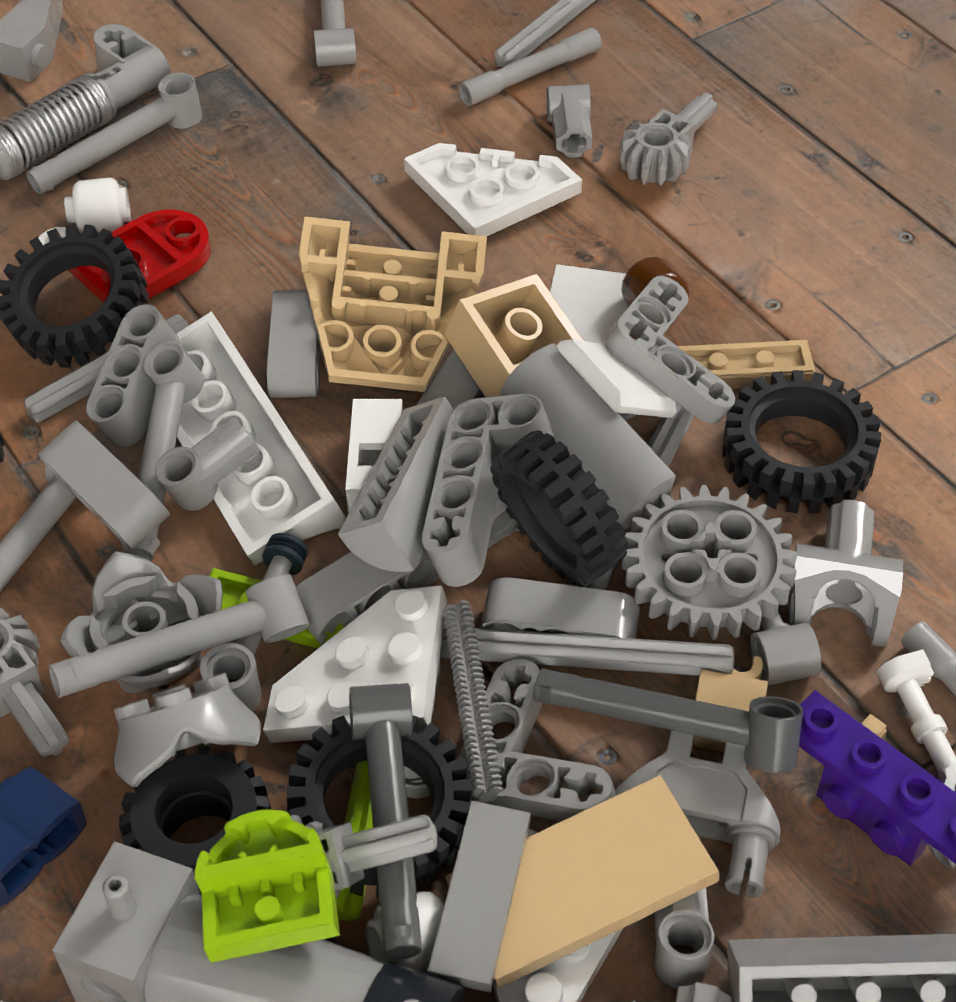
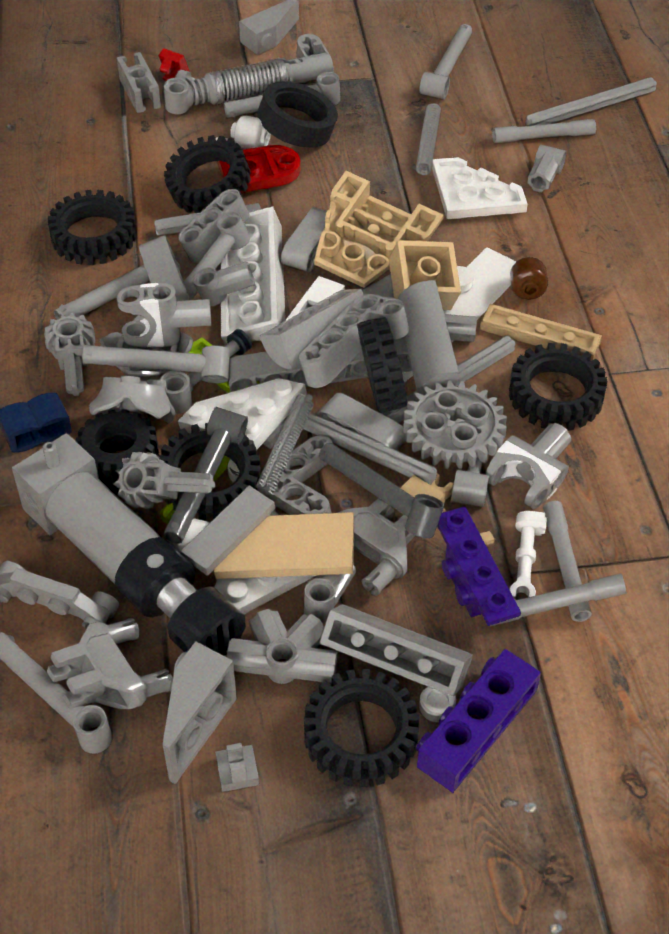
camera: 25 degrees right, 0 degrees up
(154, 560) = (160, 314): none -> light grey connector
(155, 177) = (291, 129): none -> black tyre
(265, 887) = (118, 475): lime slope -> none
(366, 102) = (428, 139): none -> light grey piece
(615, 381) = (468, 314): white tile -> none
(652, 353) = (496, 304): light grey beam -> none
(664, 144) = (592, 199): light grey gear -> none

